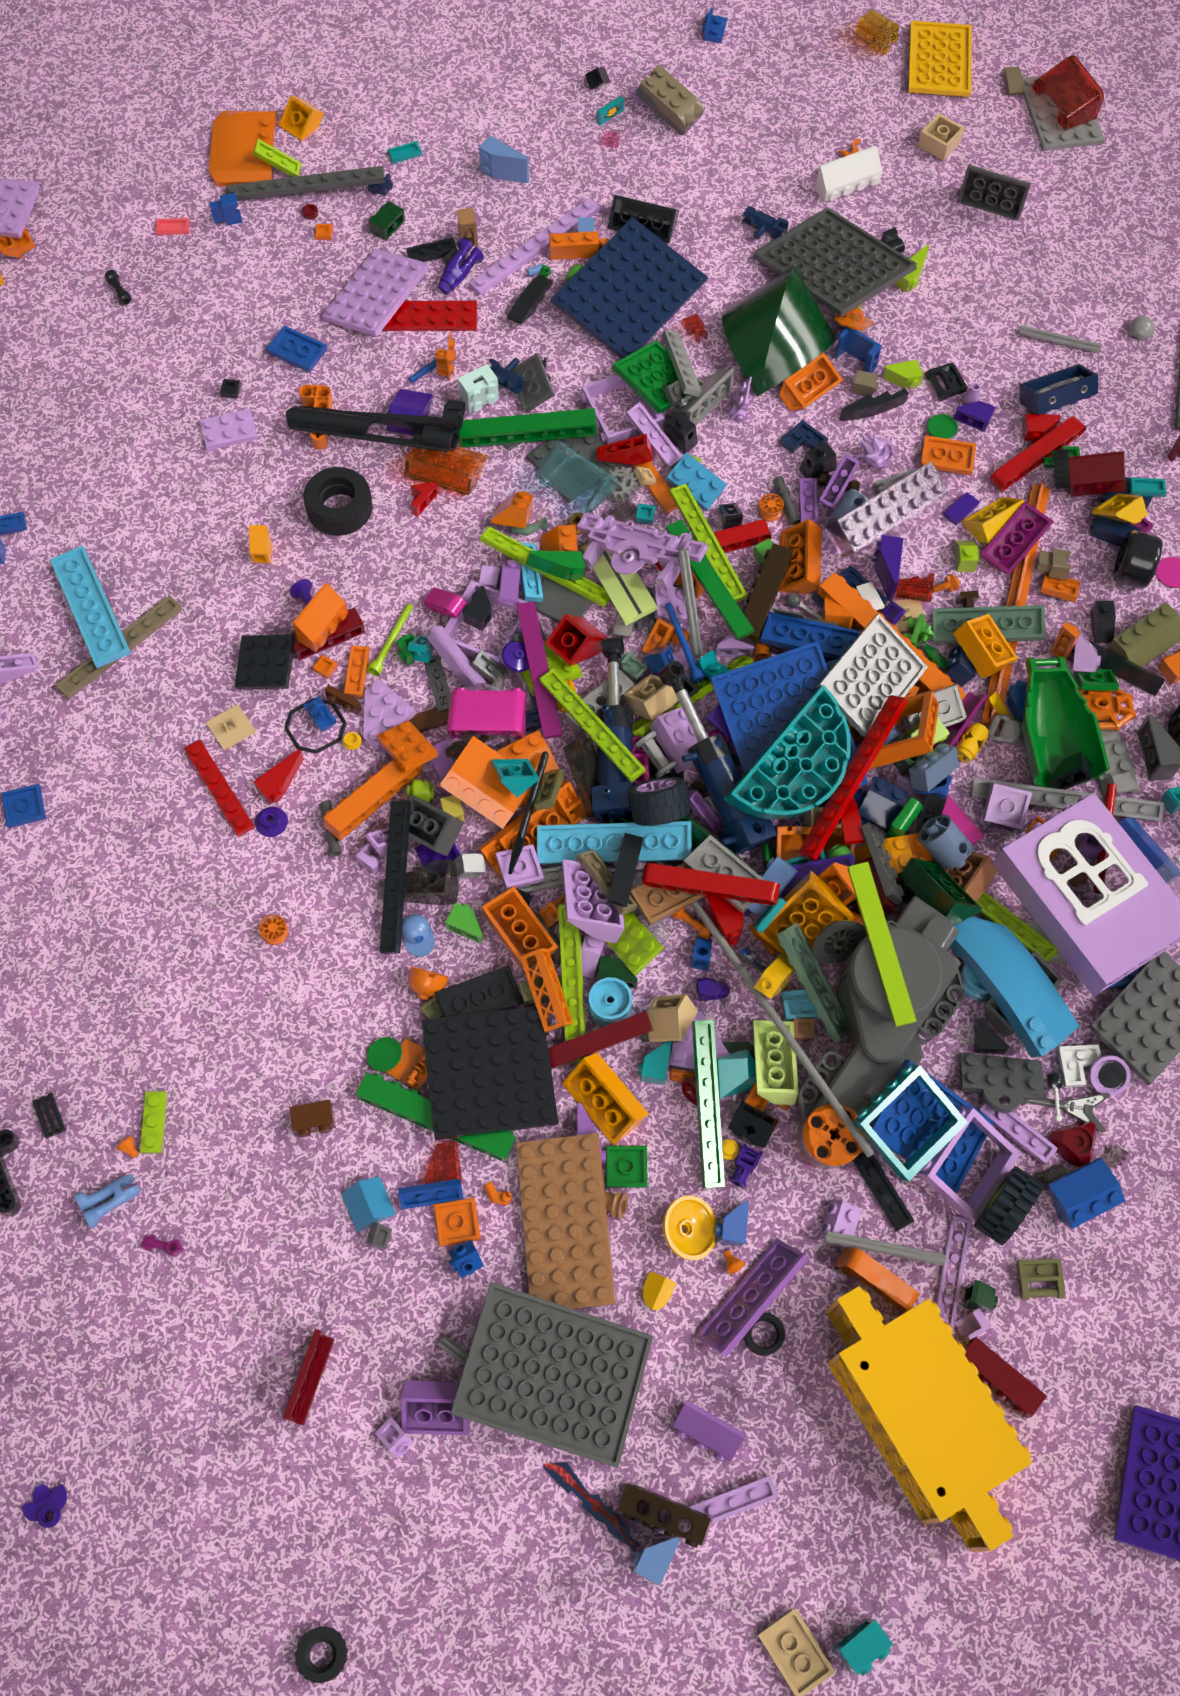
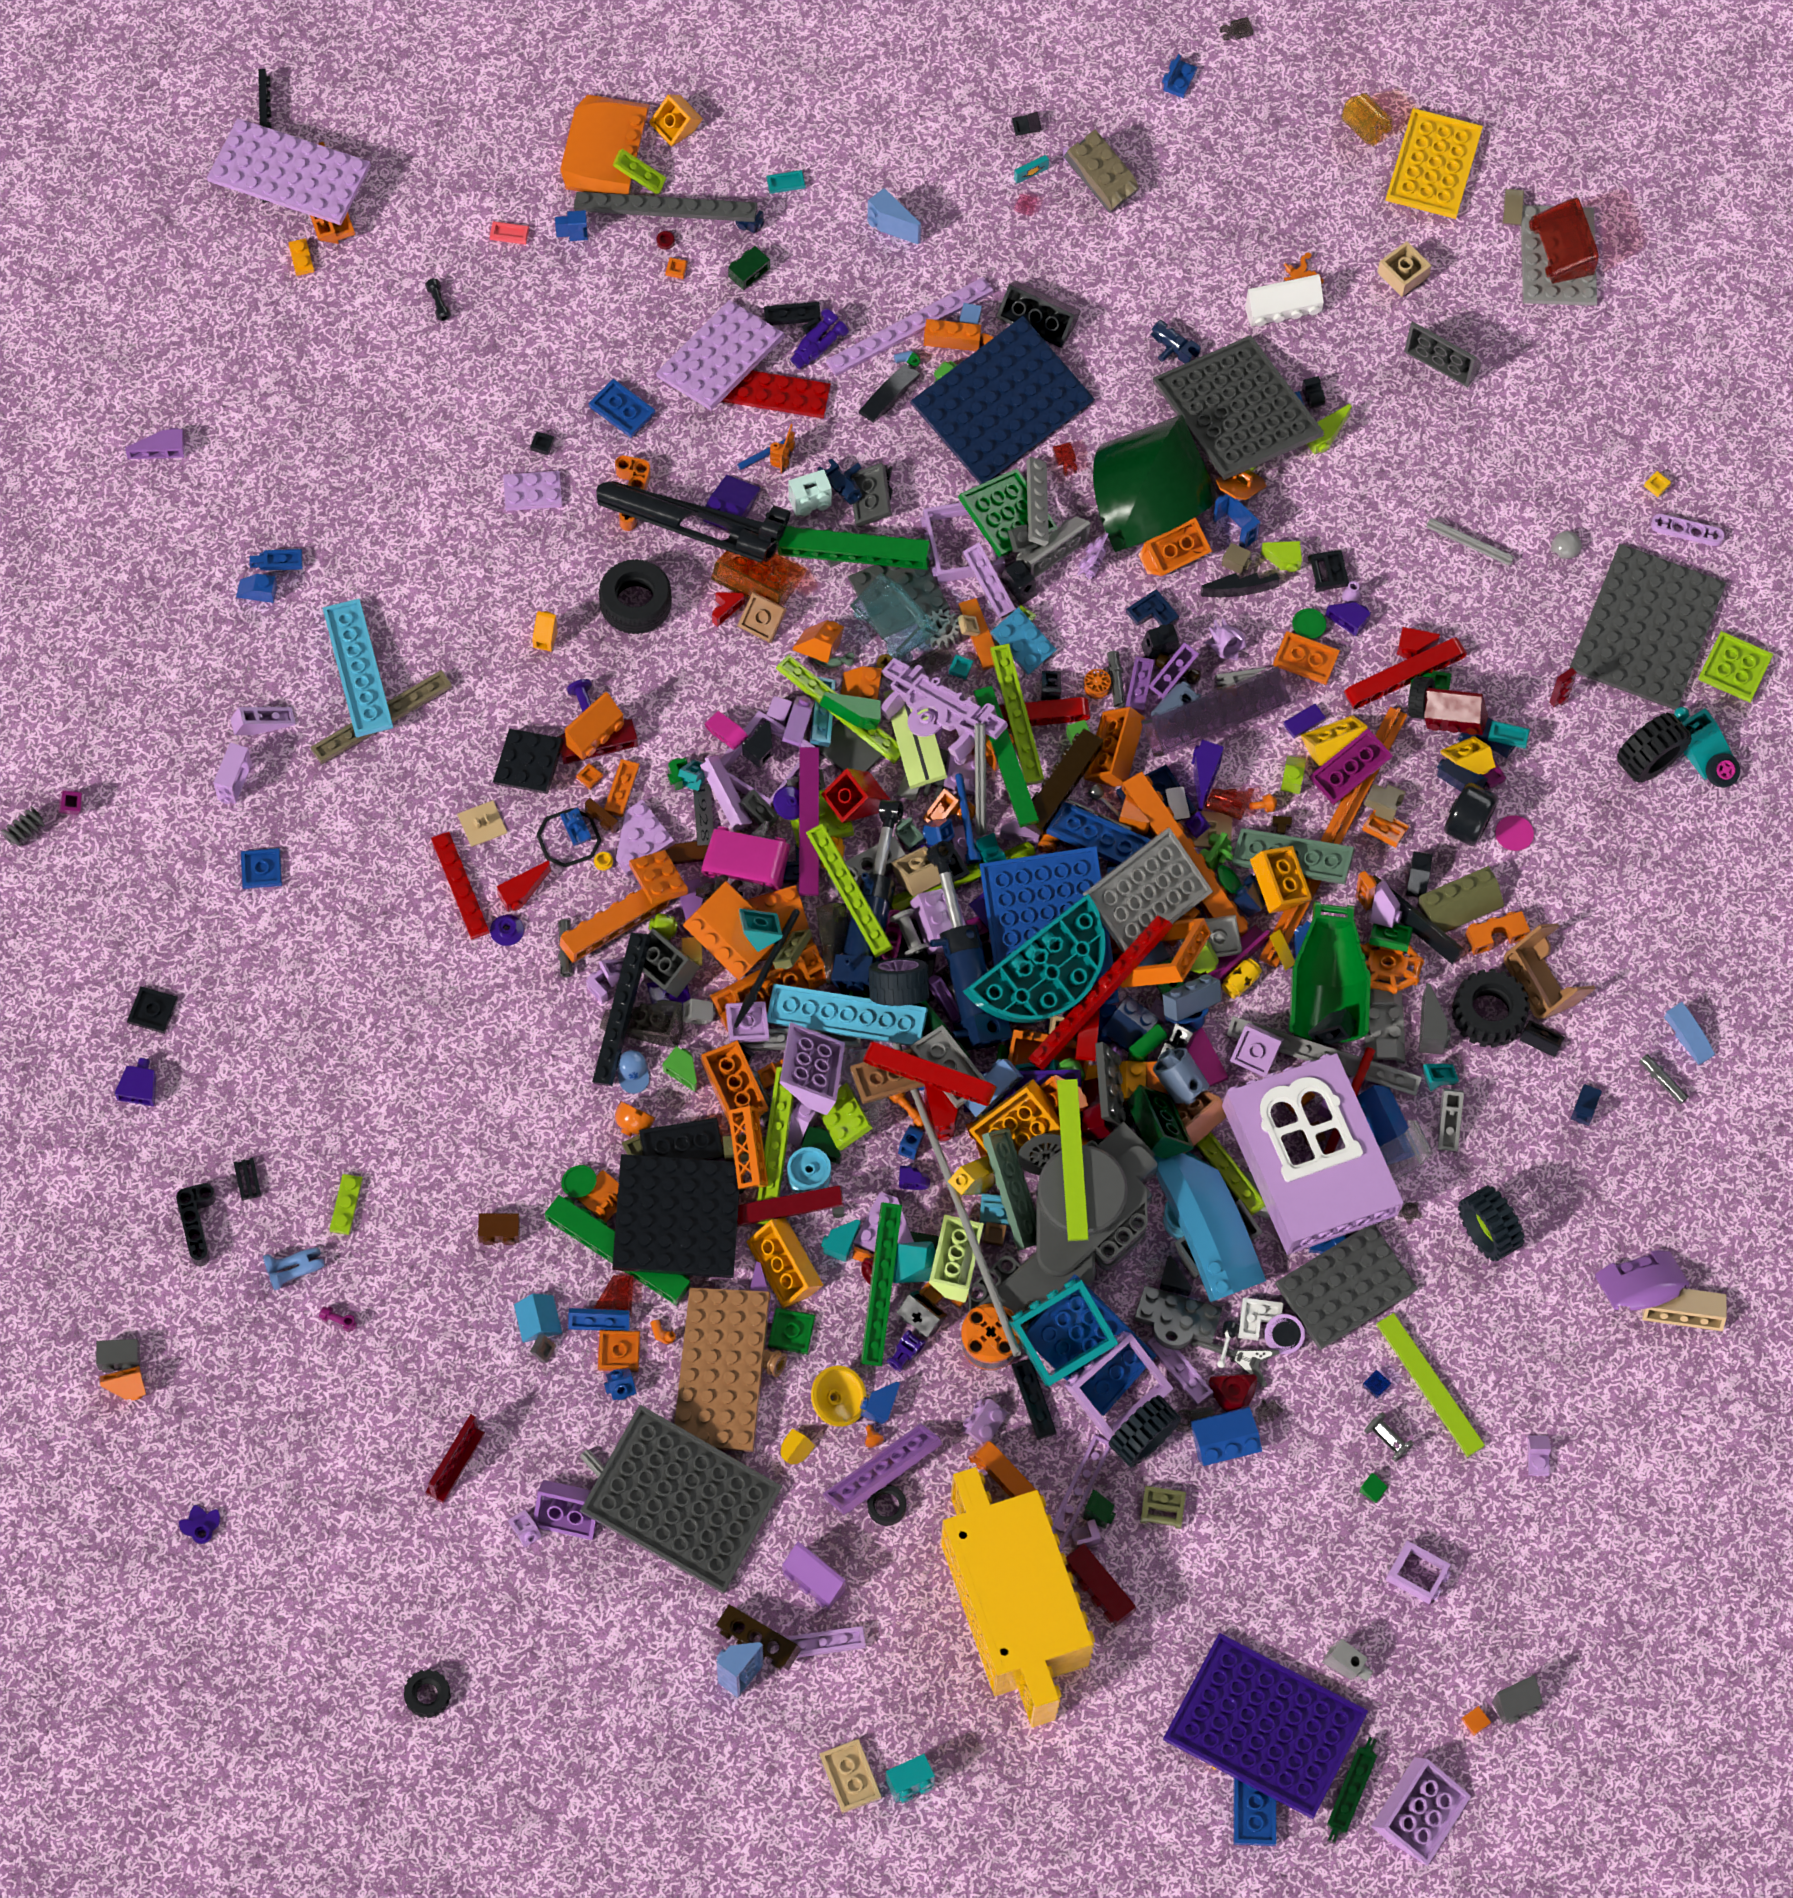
camera: 10 degrees right, 0 degrees up
(127, 1146) = (318, 1221): orange rock -> none
(273, 930) = (491, 1040): orange wheel -> none
(376, 667) = (642, 787): lime piece -> none
(457, 500) = (762, 617): none -> medium nougat tile
(467, 225) = (836, 294): medium nougat brick -> none
(591, 1503) = (695, 1621): dark blue sword -> none
(602, 877) = (829, 1053): dark tan tile -> none
(625, 870) = (850, 1044): black slope -> none
(628, 451) = (955, 594): red slope -> none
(670, 1017) = (863, 1197): tan slope -> none
(730, 1149) = (894, 1333): yellow plate -> none
(752, 959) = (958, 1154): piece -> none
(768, 915) = (983, 1115): teal tile -> none
(884, 1248) = (1020, 1450): light grey axle -> none
(1010, 730) = (1283, 973): light grey piece -> none
(1058, 389) = (1446, 604): dark blue piece -> none

